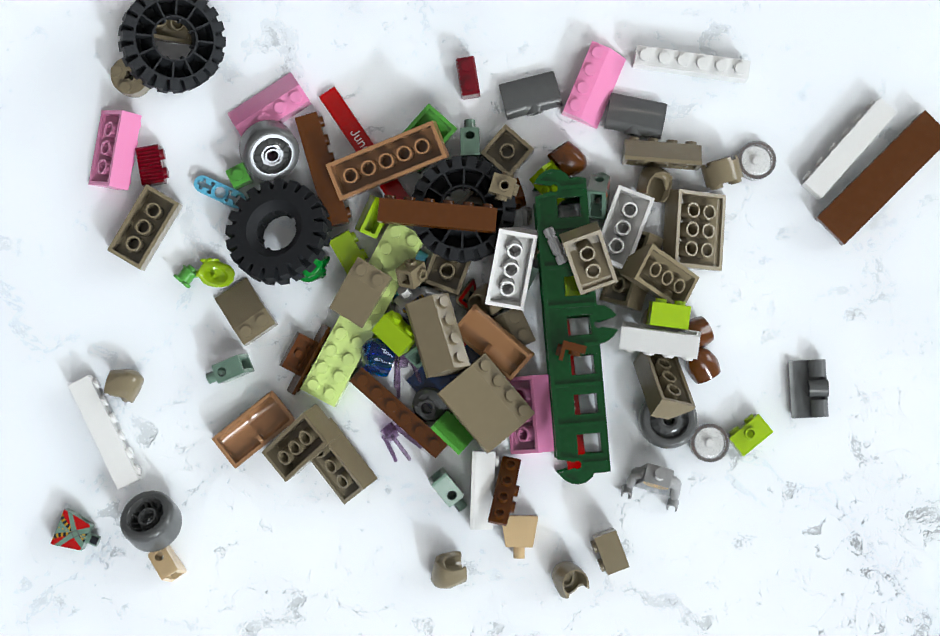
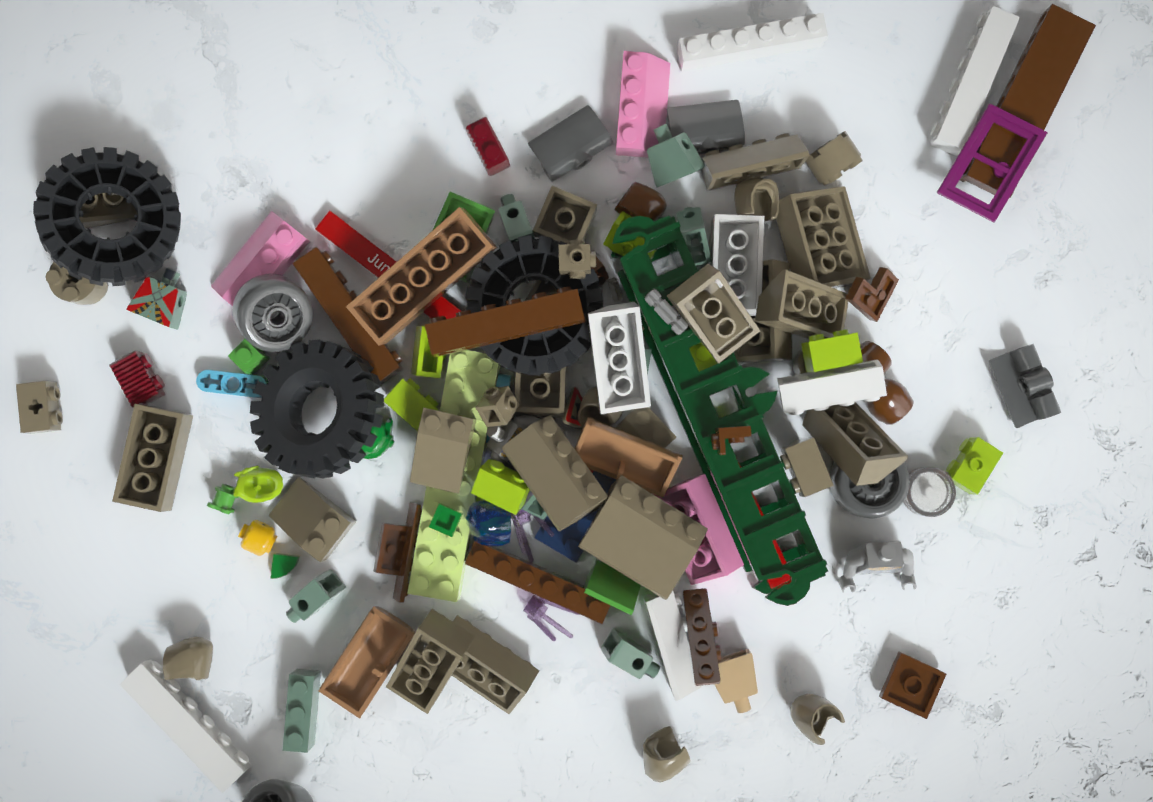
camera: 20 degrees left, 0 degrees up
(69, 152) = (30, 398): none -> dark tan brick
(115, 149) = (87, 374): bright pink slope -> none
(187, 112) = (160, 300): none -> torso
(193, 449) = (301, 710): none -> sand green brick
(202, 312) = (257, 537): none -> yellow head
(213, 338) = (283, 565): none -> green tile
(346, 344) = (445, 520): none -> green plate
(430, 396) = (567, 549): dark grey piece -> none
(602, 132) = (672, 157): none -> sand green torso
(610, 551) = (855, 666): dark tan brick -> none
(620, 391) = (806, 467): none -> dark tan slope
(649, 581) = (912, 685): none -> reddish brown plate
(718, 286) = (873, 297): none -> reddish brown plate
(756, 160) = (870, 130): clear piece -> none
(850, 228) = (1012, 175): none -> magenta door

